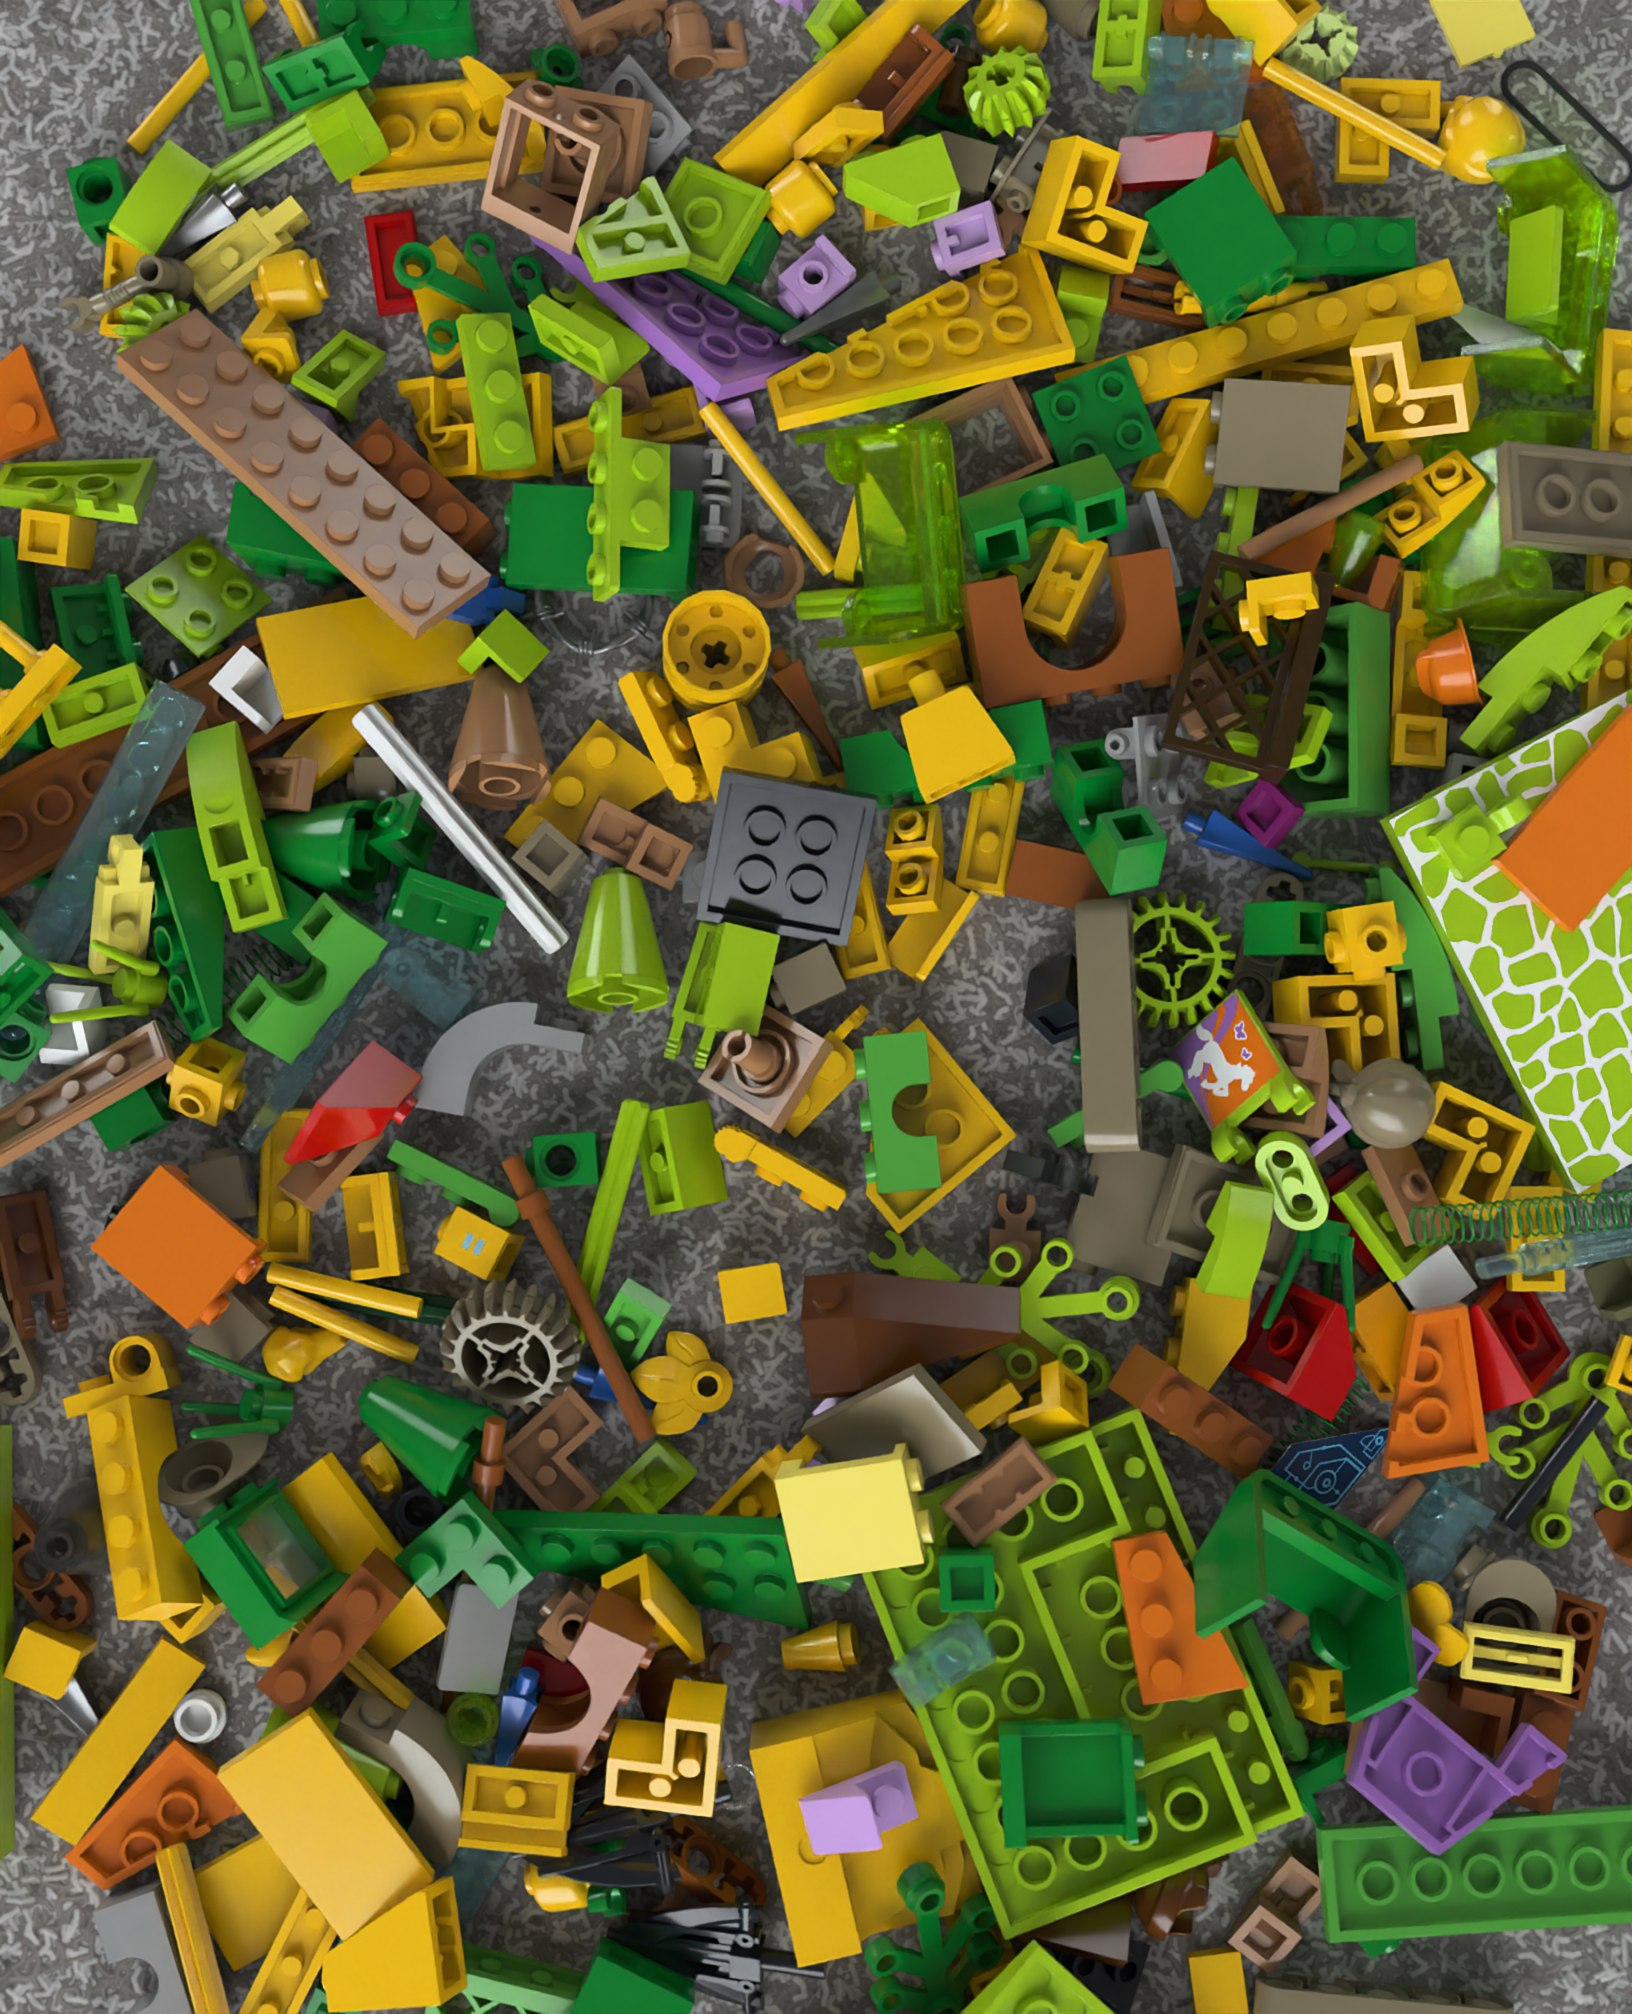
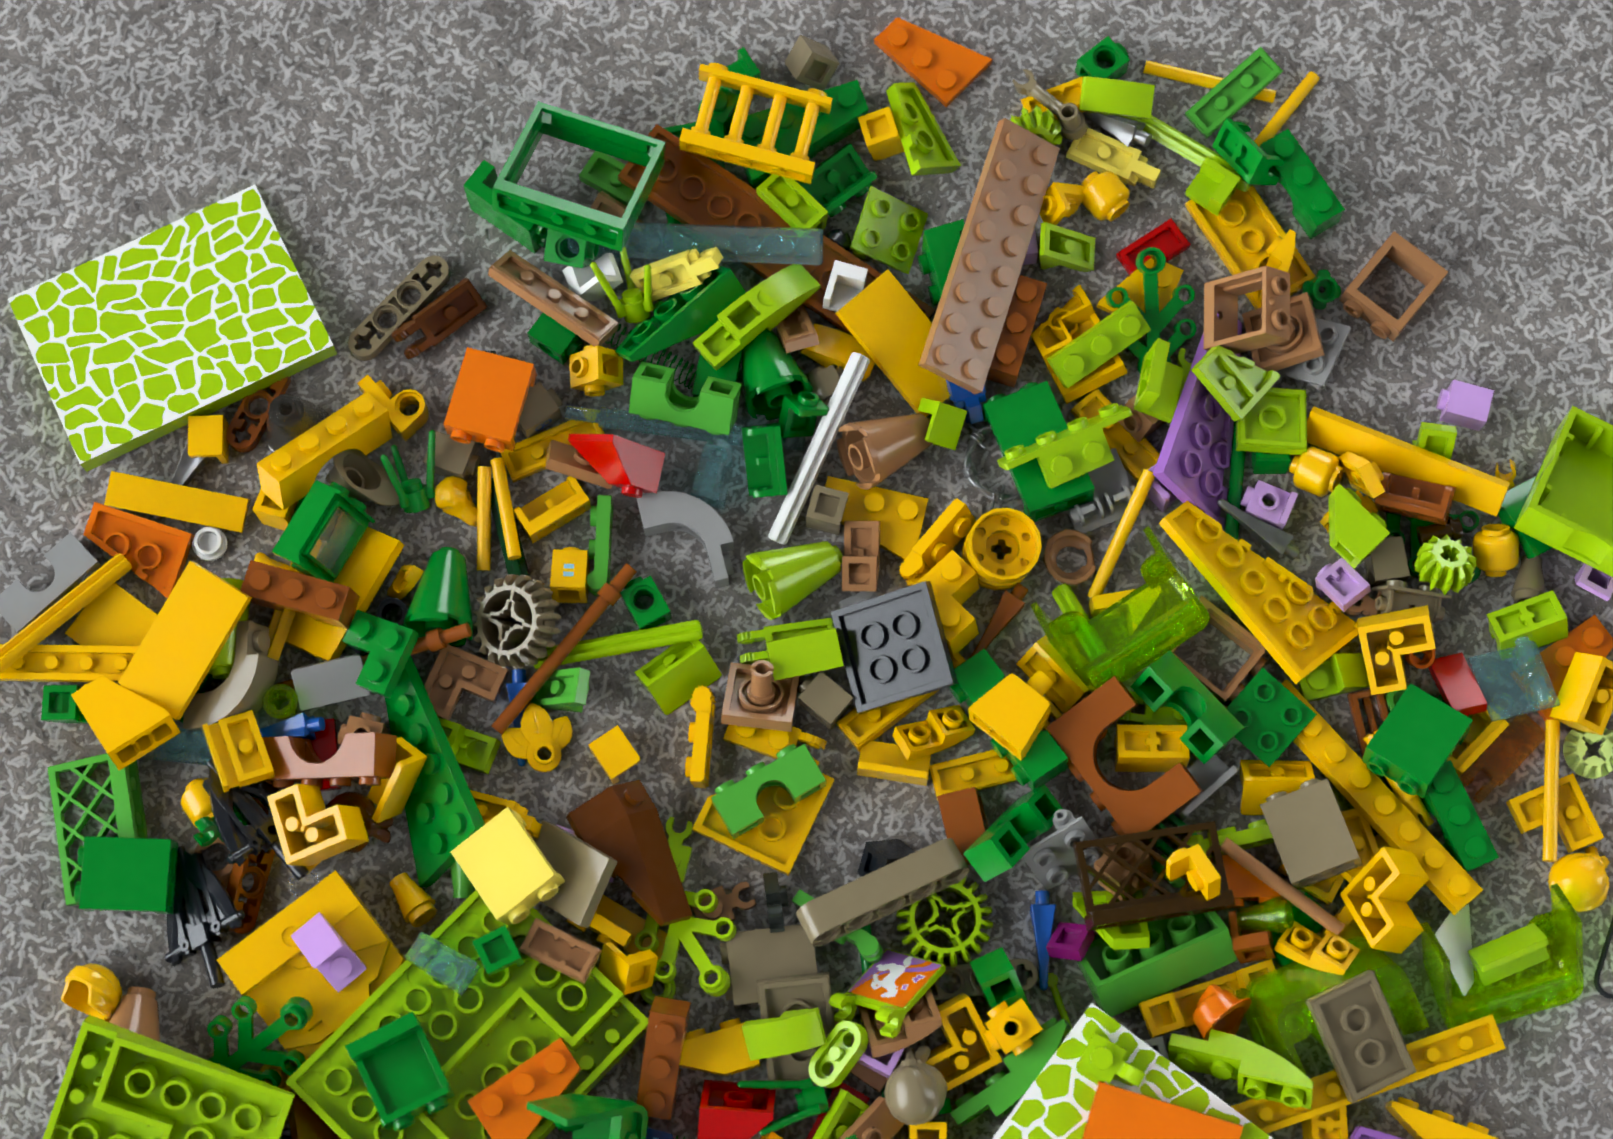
camera: 65 degrees right, 10 degrees down
(691, 43) = (1379, 362): medium nougat piece -> none

